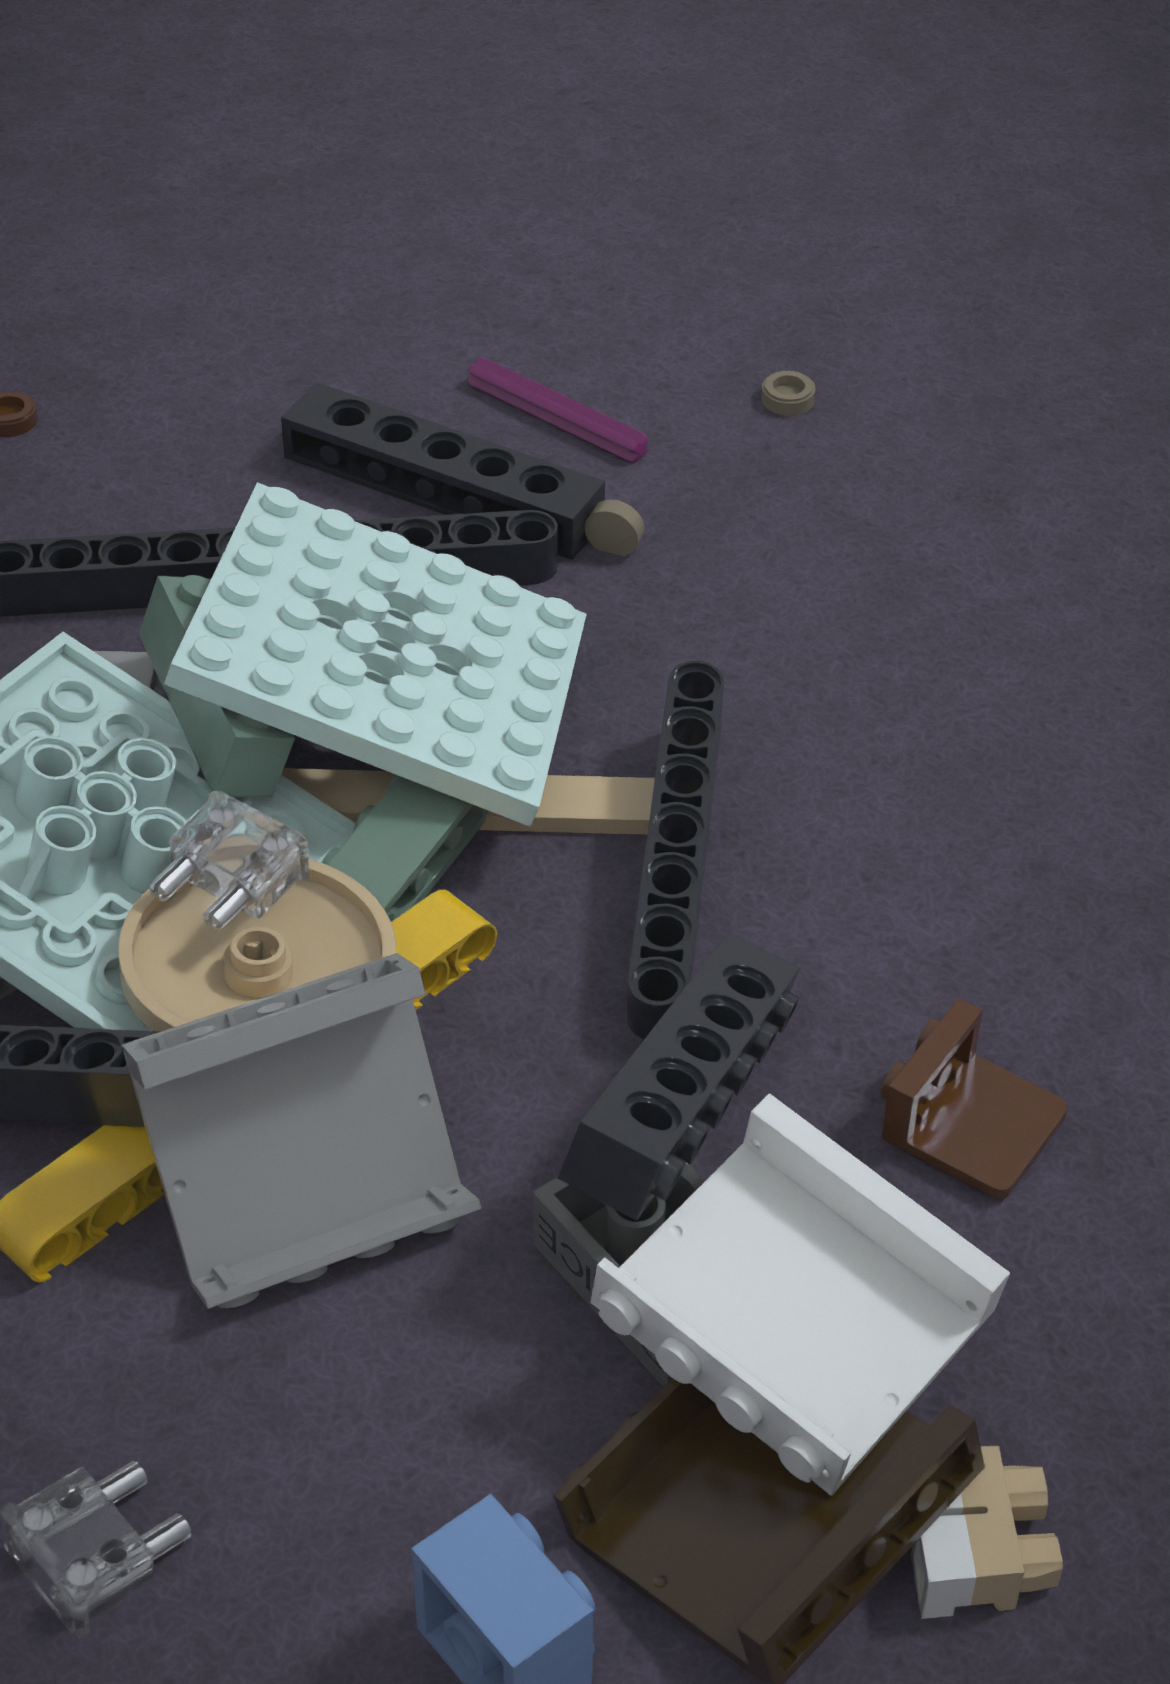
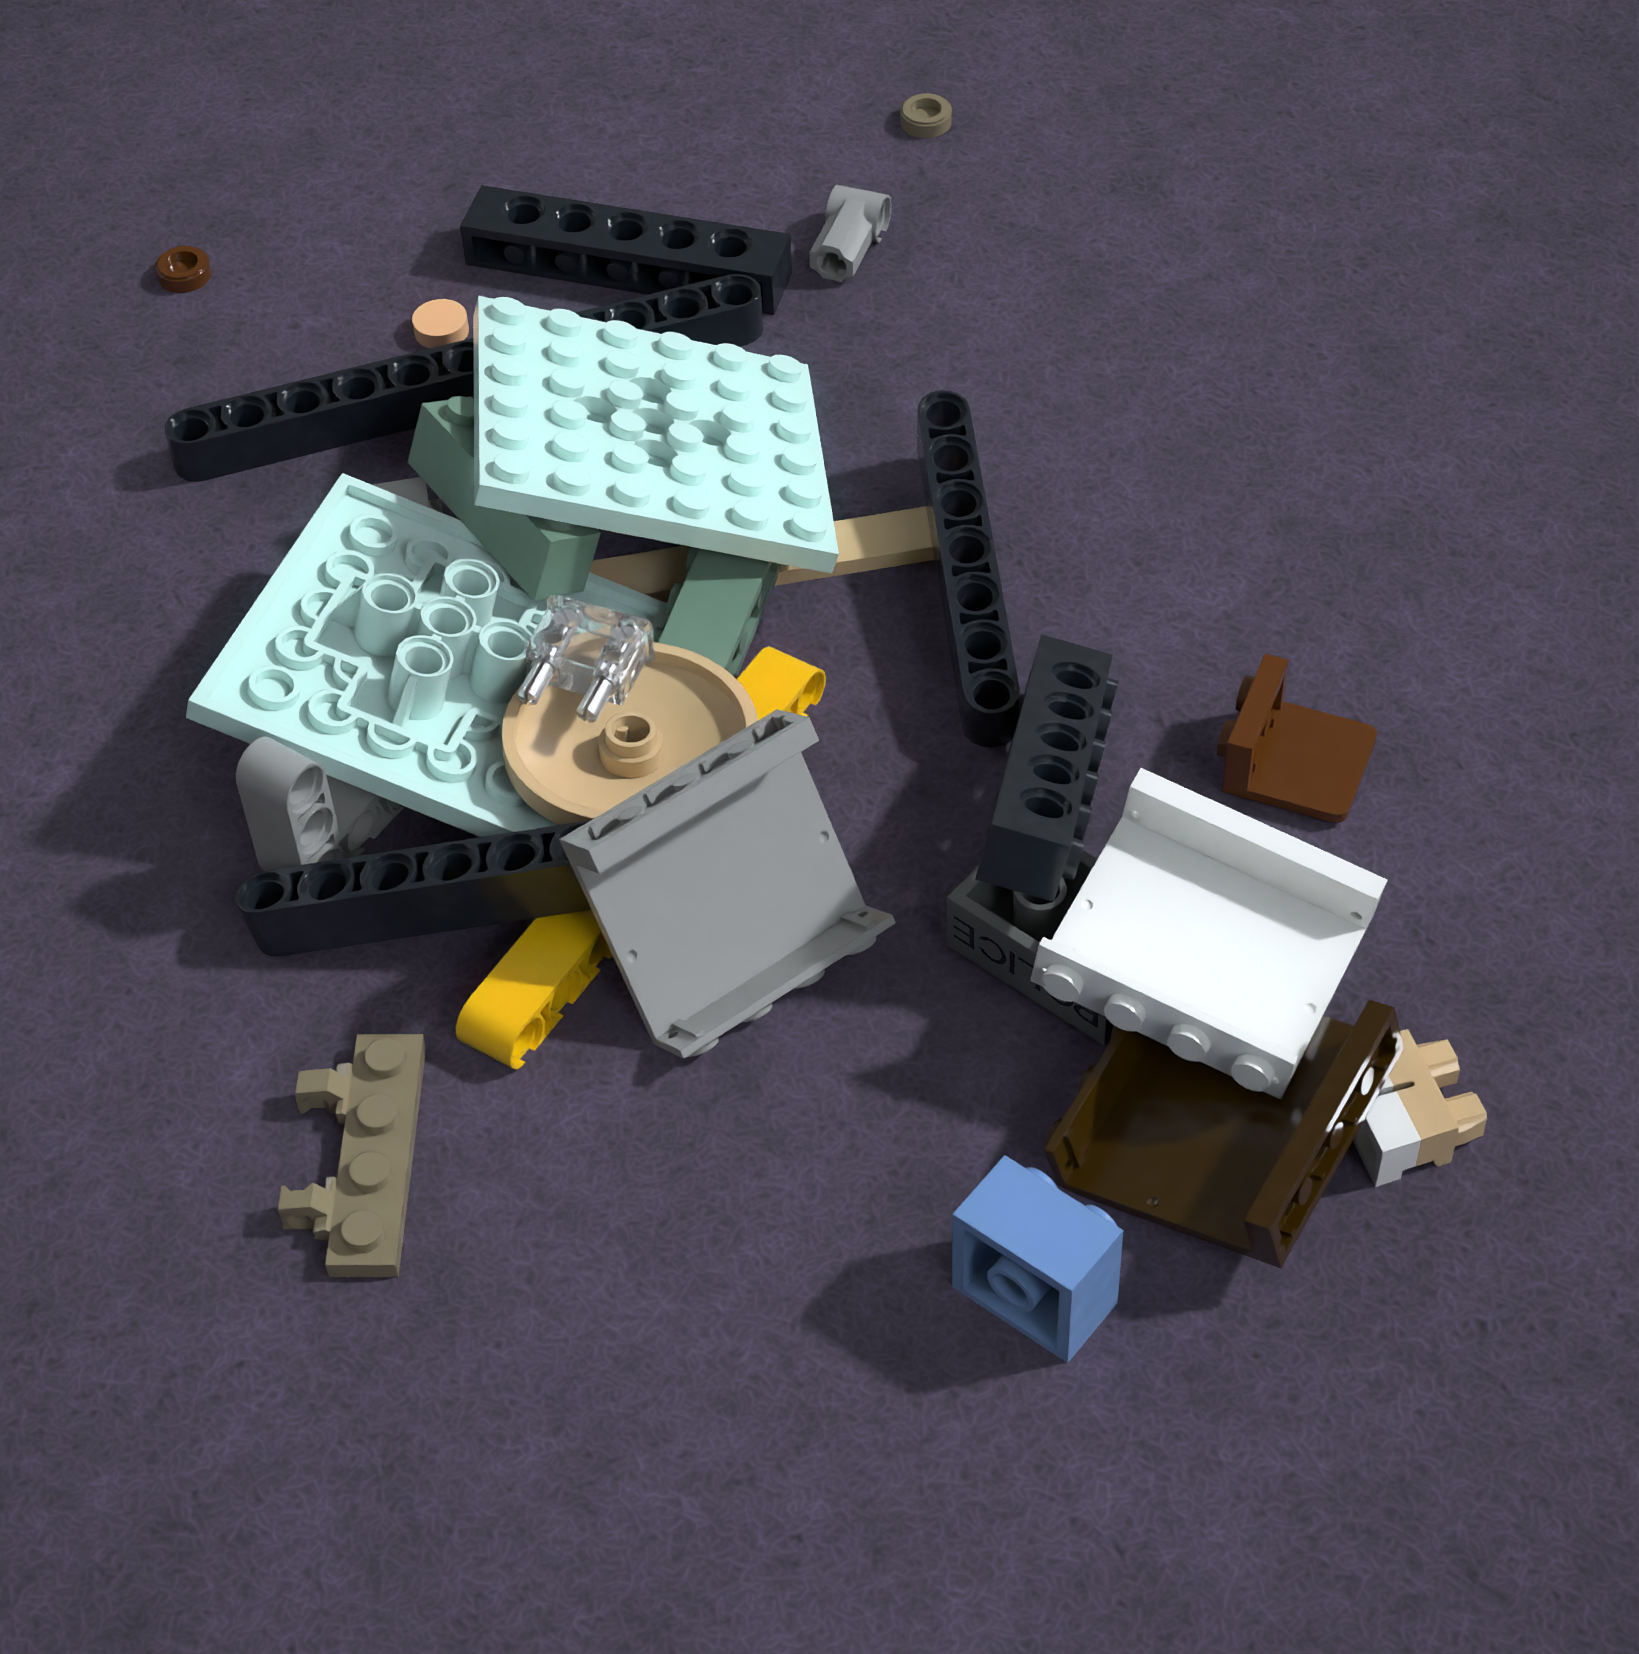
camera: 10 degrees left, 5 degrees up
(83, 1548) = (644, 1282): clear piece -> none
(228, 505) = (440, 323): none -> light nougat tile
(558, 410) = (713, 170): magenta axle -> none
(614, 527) = (808, 277): dark tan tile -> none
(675, 484) = (850, 226): none -> light grey piece

